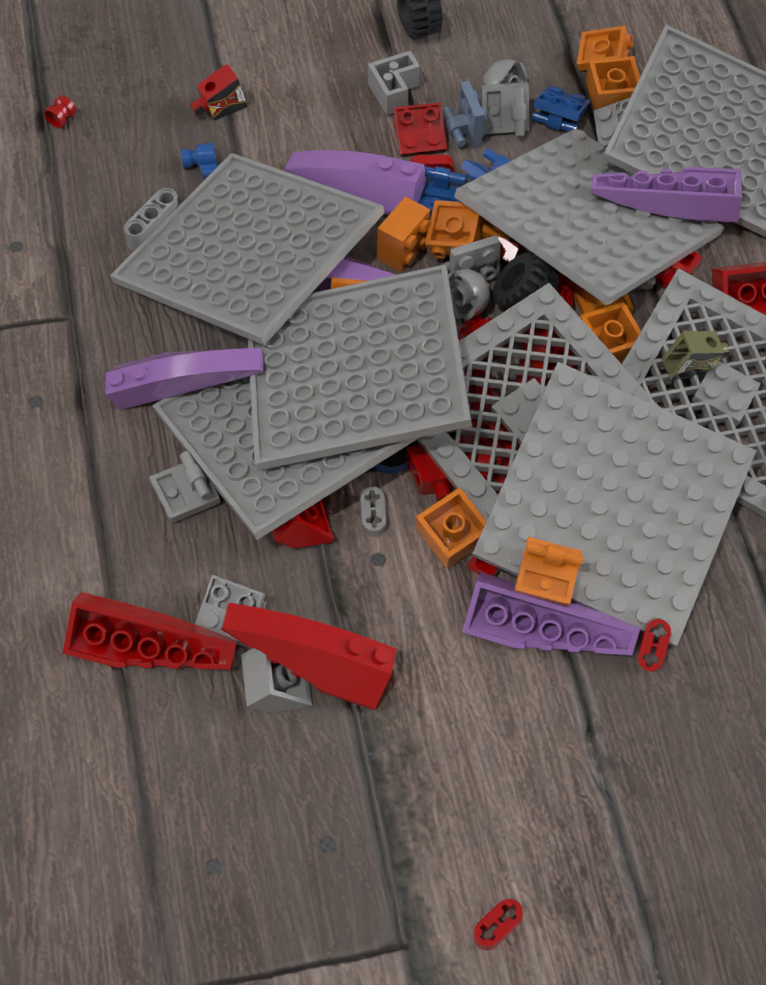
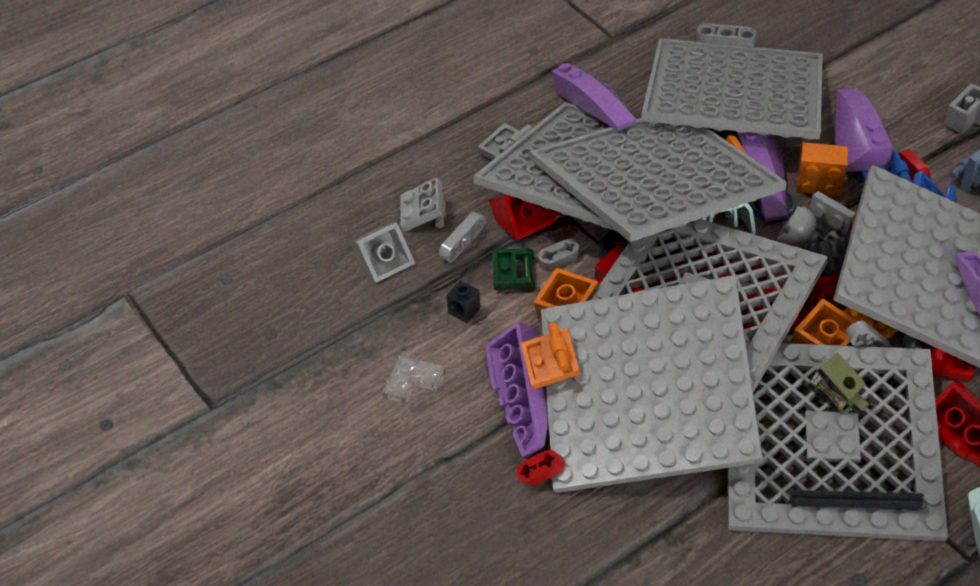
camera: 70 degrees right, 10 degrees down
(137, 636) = (375, 166): red wedge -> none
(203, 156) = (805, 40): blue piece -> none
(219, 94) = (868, 24): torso -> none
(298, 589) = (462, 237): none -> light grey beam
(322, 654) = (405, 260): red wedge -> none
(369, 568) = (505, 269): none -> dark green plate
(398, 626) = (463, 301): none -> black brick
(419, 129) = (942, 144): red plate -> none
(451, 226) = (846, 189): orange plate -> none
(464, 721) = (409, 373): none -> clear plate
(502, 929) = (248, 455): red beam -> none
(641, 308) = (868, 338): none -> light grey beam

